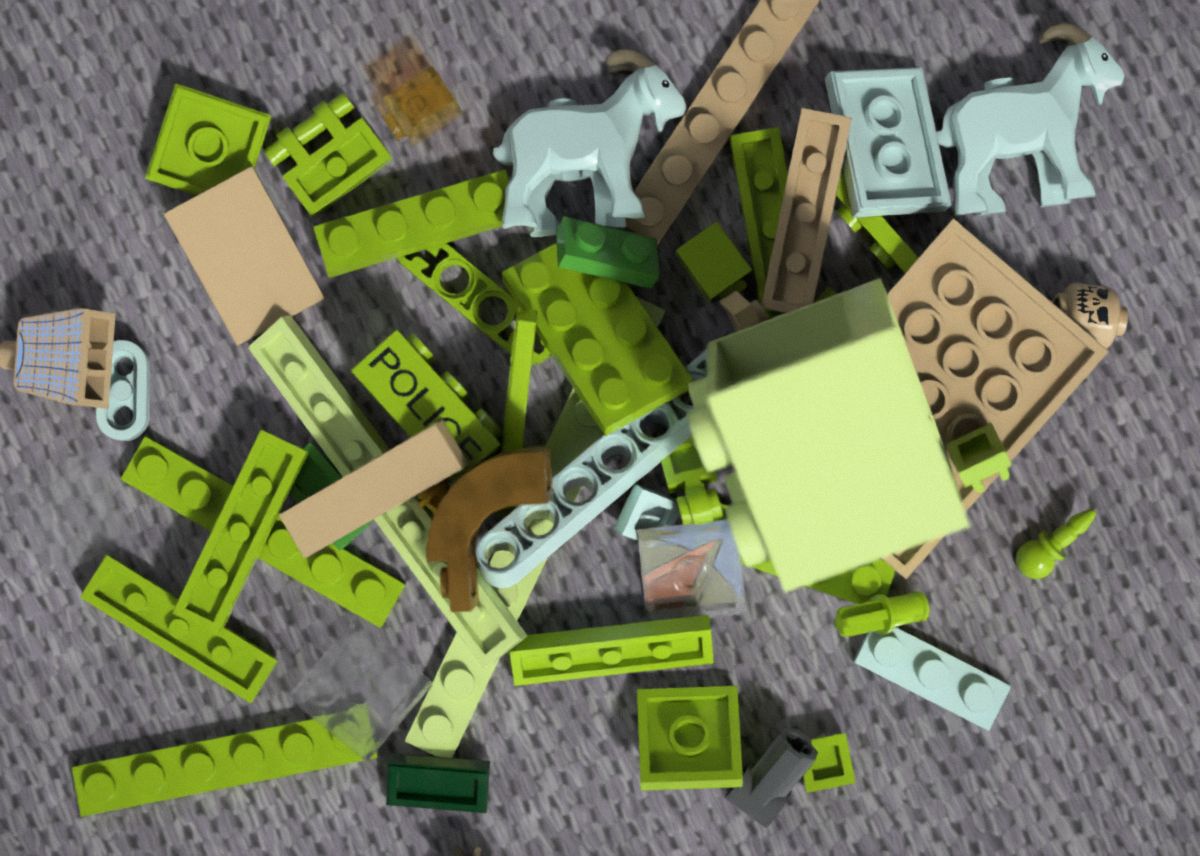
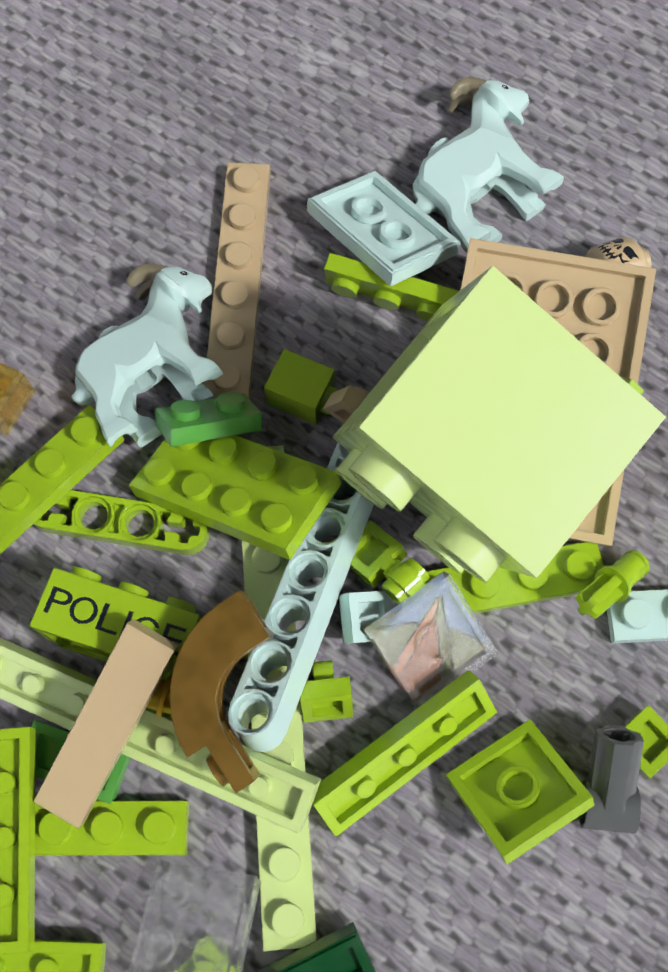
camera: 25 degrees left, 15 degrees down
(518, 386) = (192, 565): lime tile -> none
(572, 565) = (326, 696): none -> lime tile
(761, 187) = (322, 329): lime plate -> none
(806, 210) = (350, 297): tan plate -> none

